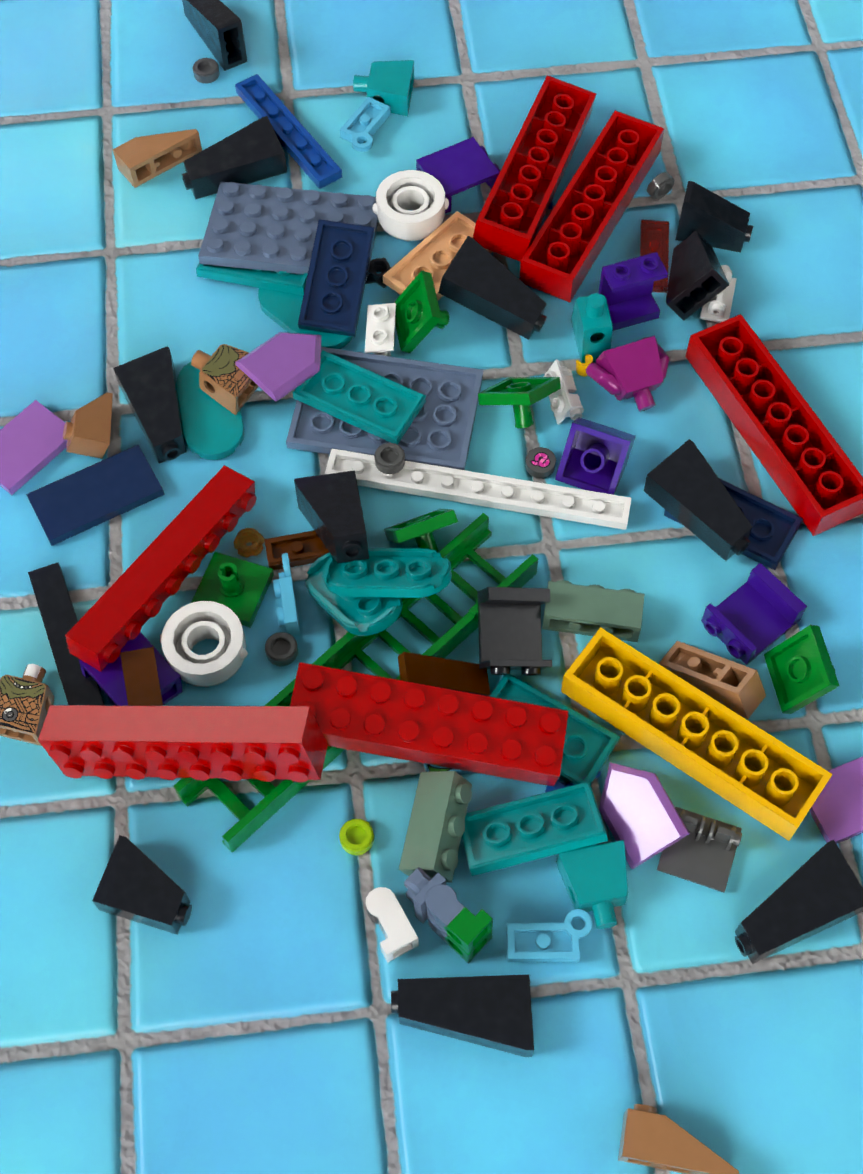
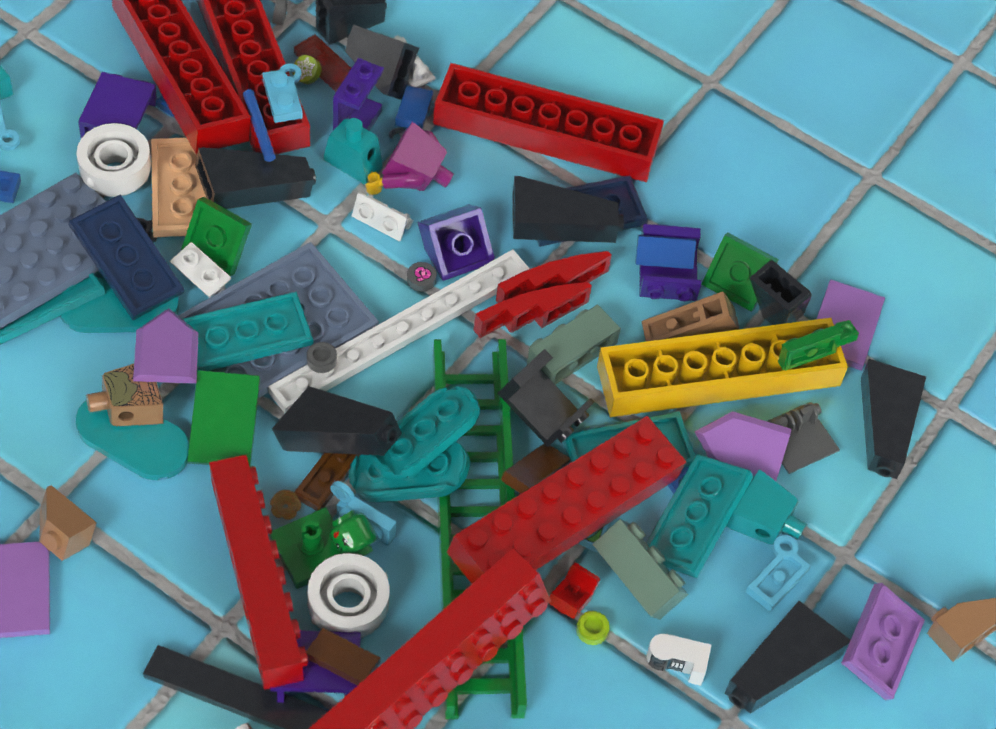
camera: 55 degrees left, 5 degrees down
(95, 494) = (121, 574): dark blue tile -> none
(153, 398) = (87, 466): black slope -> none
(258, 603) = (353, 534): none -> green head
(274, 445) = (223, 417): none -> green tile
(281, 649) = (396, 556): dark grey tile -> none
(368, 796) = (574, 591): none -> red bracket
(421, 528) = (403, 383): green tile -> none
(447, 916) = (712, 613): hips -> none
(520, 393) = (362, 236): green tile -> none
(531, 252) = (259, 125): none -> blue bar
(566, 1079) = (883, 641): none -> medium lavender tile
(577, 241) = (282, 93): none -> medium azure hinge
(607, 560) = (539, 305): none -> red slope
(631, 243) = (309, 68): none -> lime tile
(651, 550) = (558, 272): none -> red slope
(676, 332) = (414, 107): none -> blue tile
(757, 601) = (665, 251): none -> blue tile
(785, 783) = (816, 345): none -> green hinge
(803, 714) = (779, 294): none -> black slope

